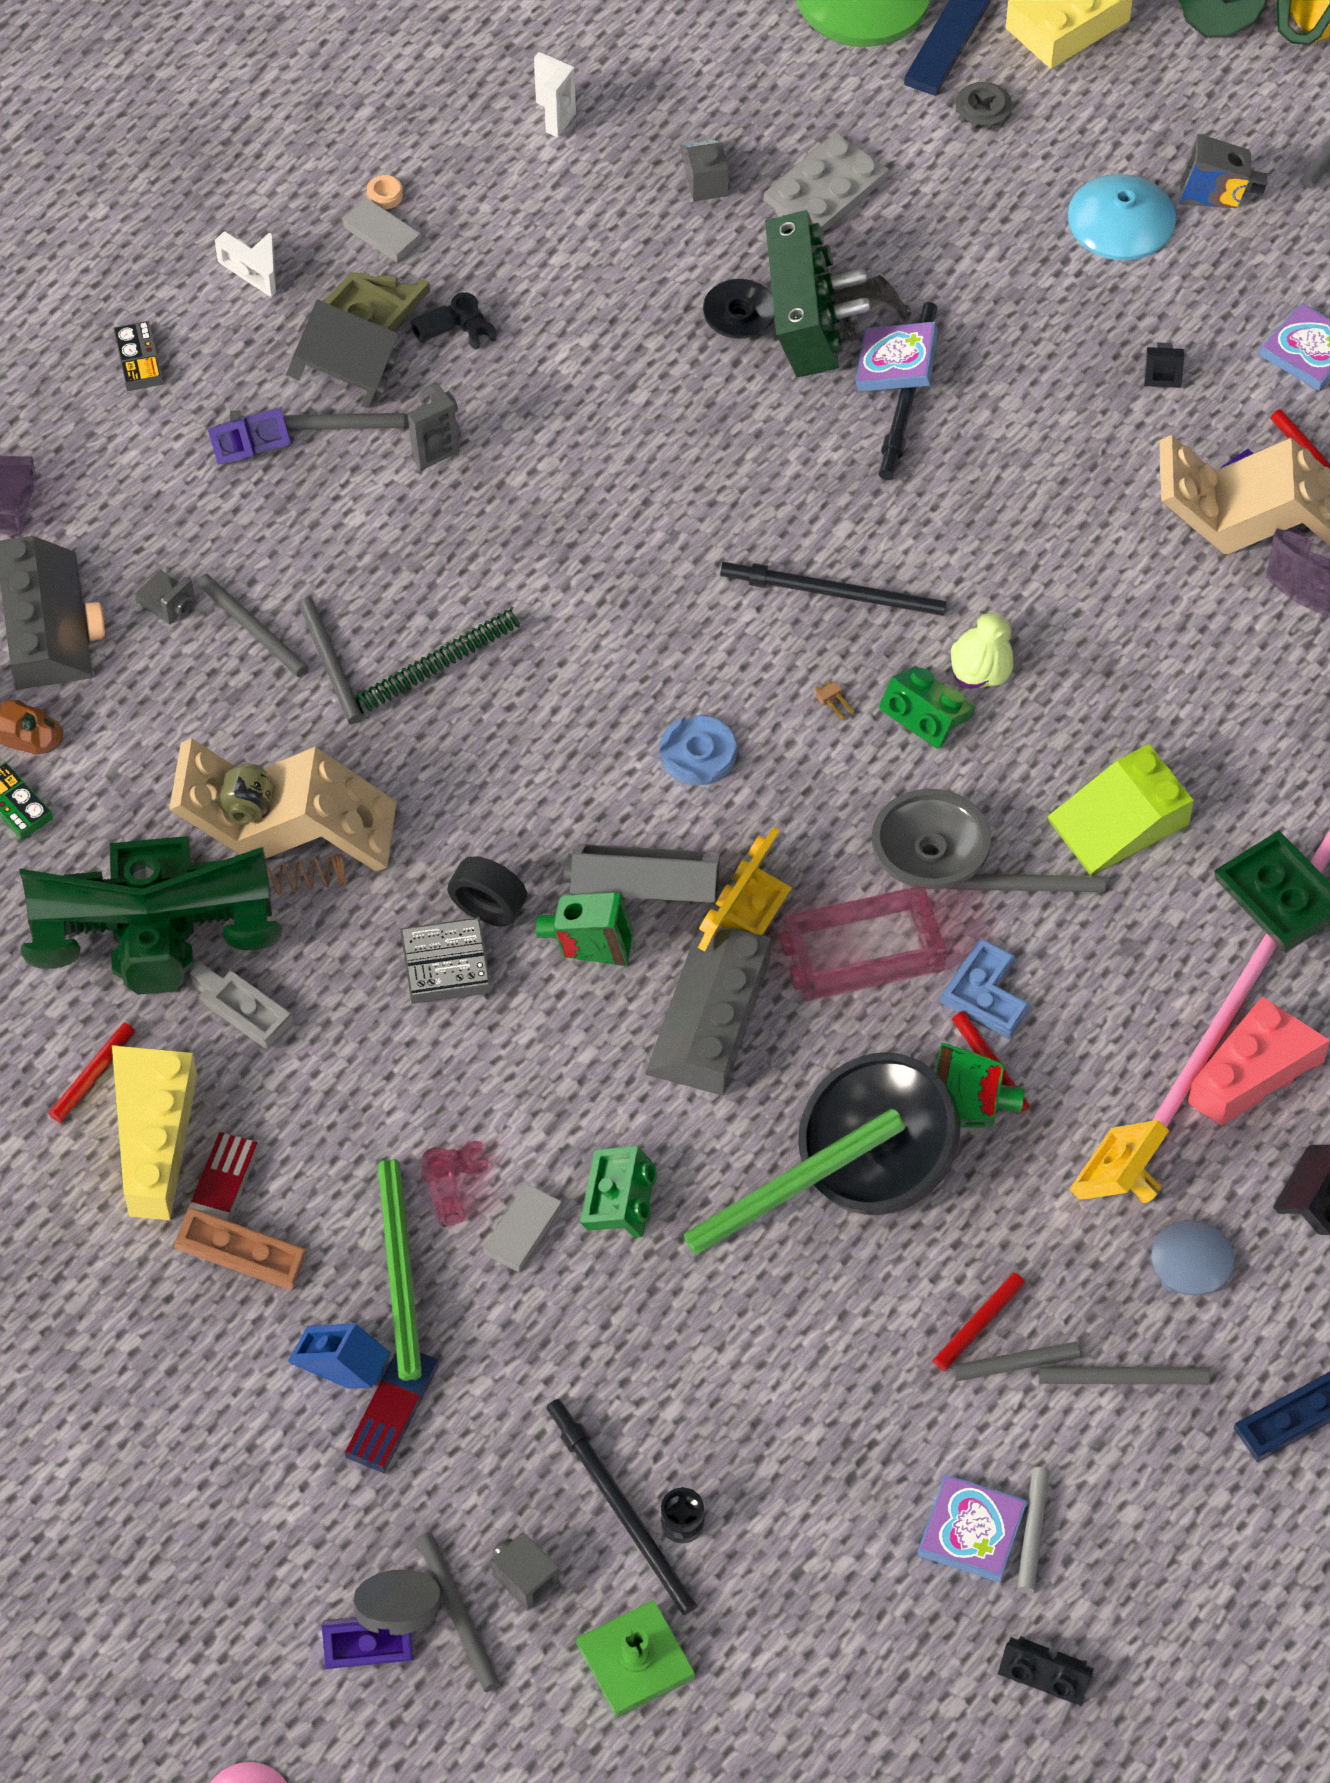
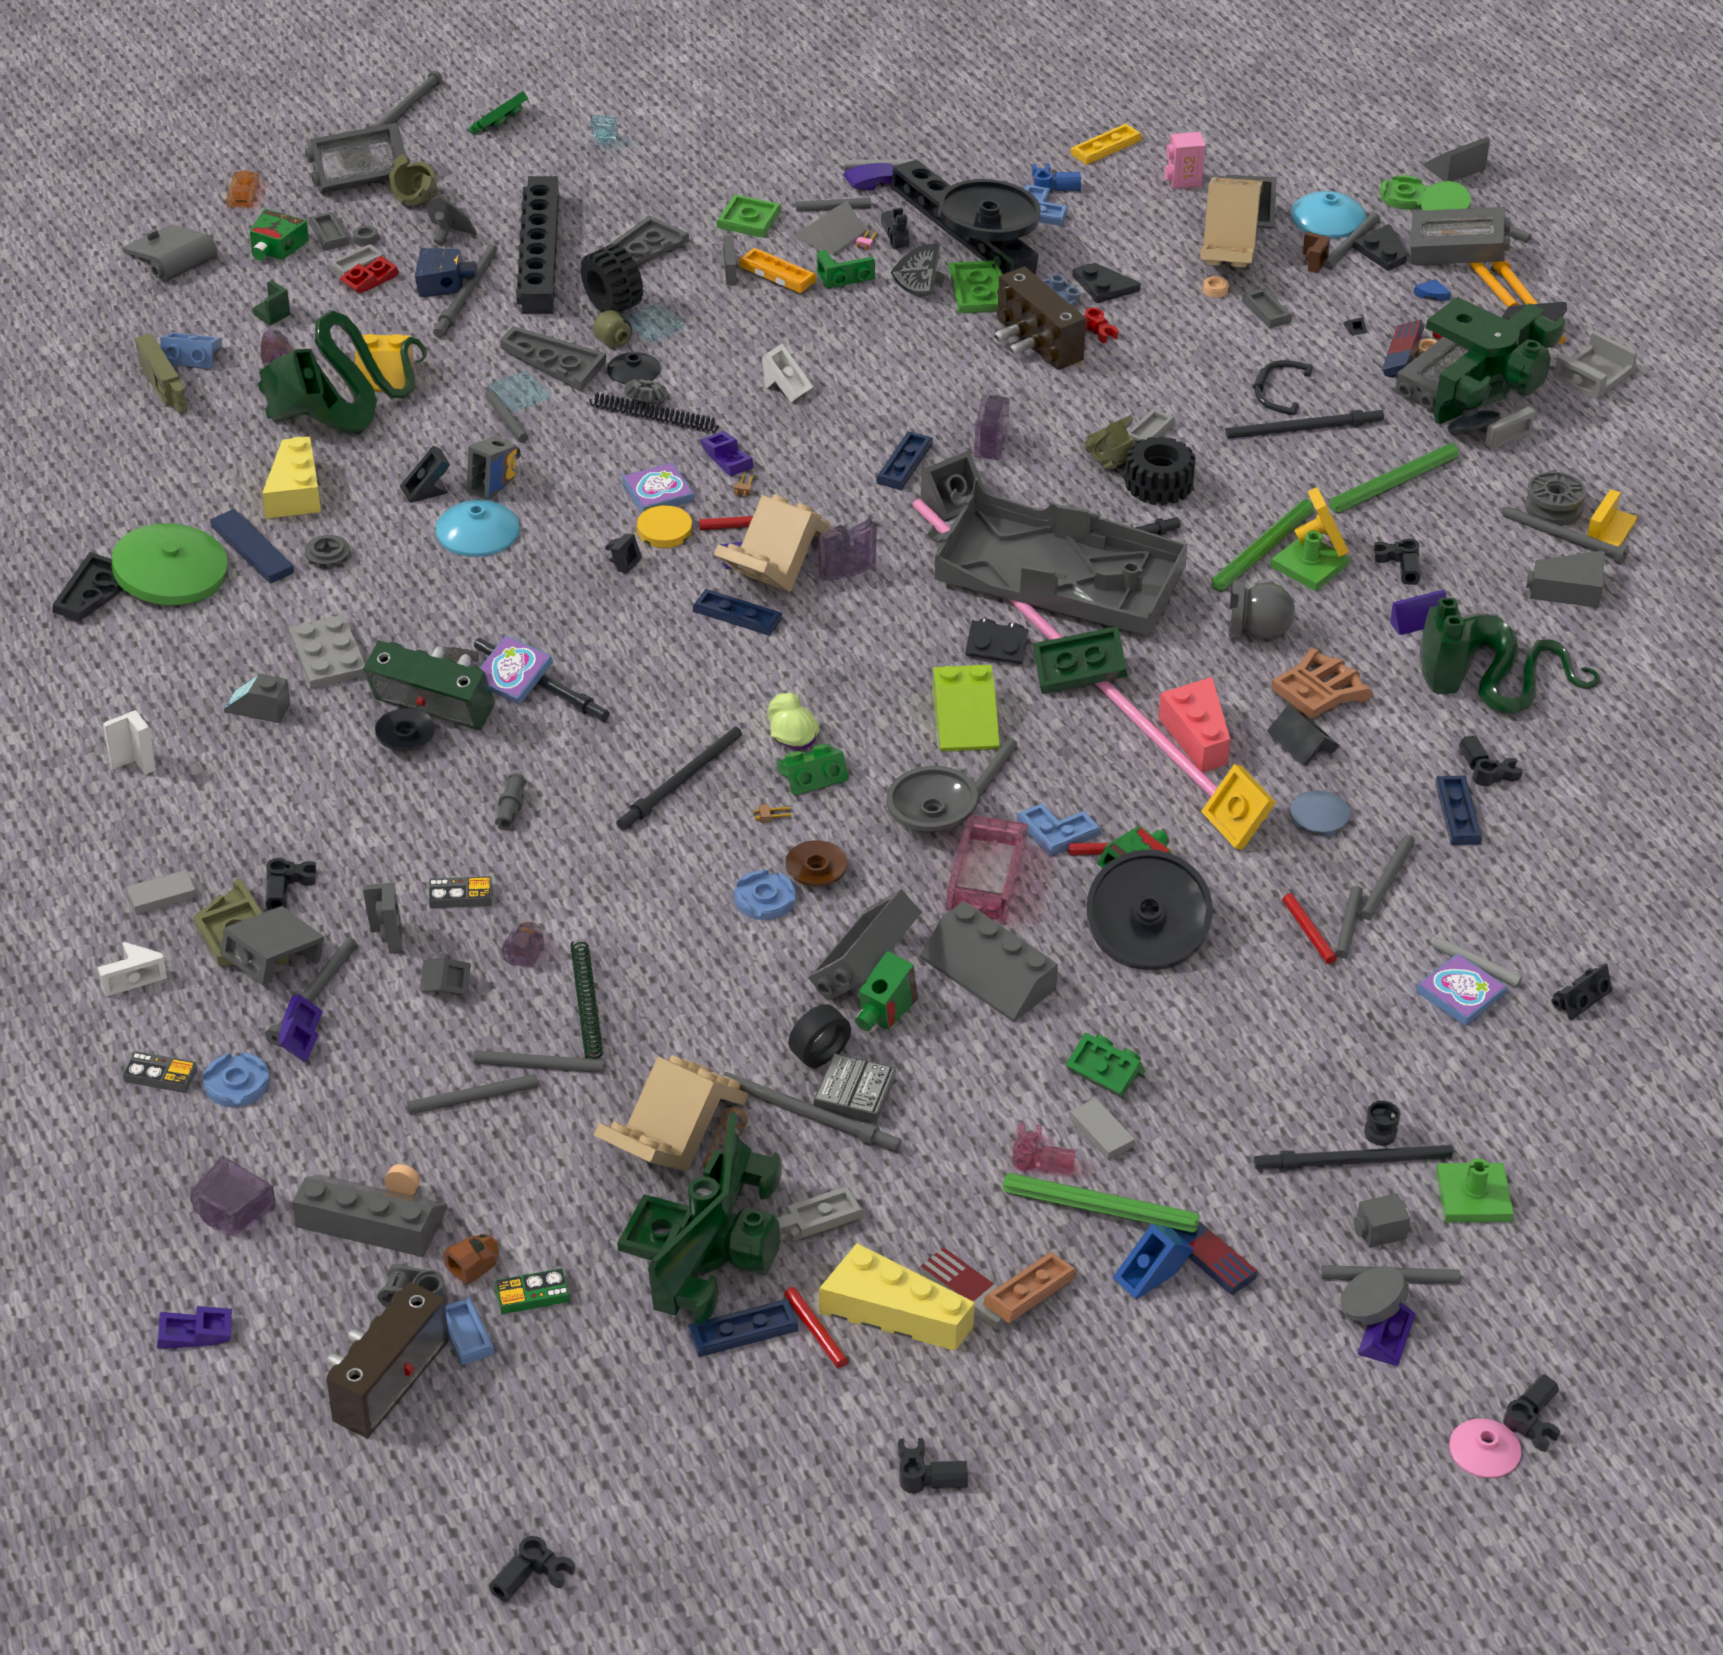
camera: 65 degrees left, 15 degrees down
(59, 1008) = (743, 1327): none -> dark blue tile
(165, 431) = (230, 1087): none -> medium blue tile
(166, 596) = (410, 1132): dark grey bracket -> none
(246, 793) = (658, 1120): olive head -> none
(385, 191) = (123, 876): light nougat tile -> none
(388, 999) = (866, 1132): none -> dark grey bar
(394, 522) = (445, 976): none -> dark grey panel
(487, 567) = (523, 945): none -> clear purple rock
(534, 476) = (460, 892): none -> tile
(692, 454) = (510, 801): none -> dark grey pin
(752, 900) = (935, 914): yellow bracket -> none
(769, 761) = (816, 863): none -> reddish brown dish
(794, 1181) = (1161, 966): bright green axle -> none
(1147, 520) = (737, 612): none -> dark blue tile
(1160, 131) = (425, 479): none -> black slope
(1247, 383) = (664, 526): none -> yellow tile
(1268, 794) = (997, 641): none -> black bracket

